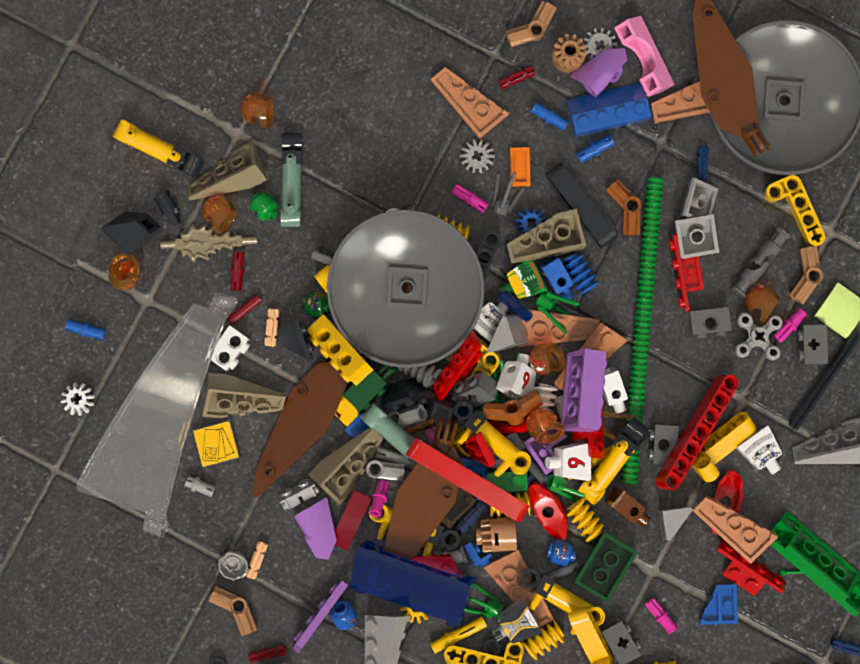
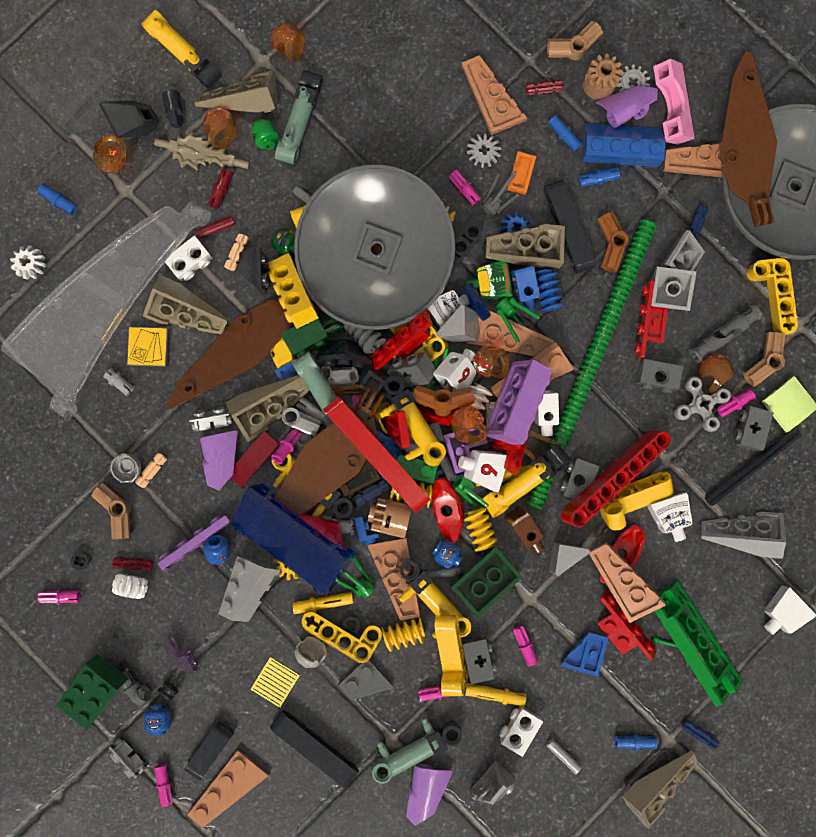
camera: 10 degrees right, 0 degrees up
(517, 623) = (382, 610): torso -> none

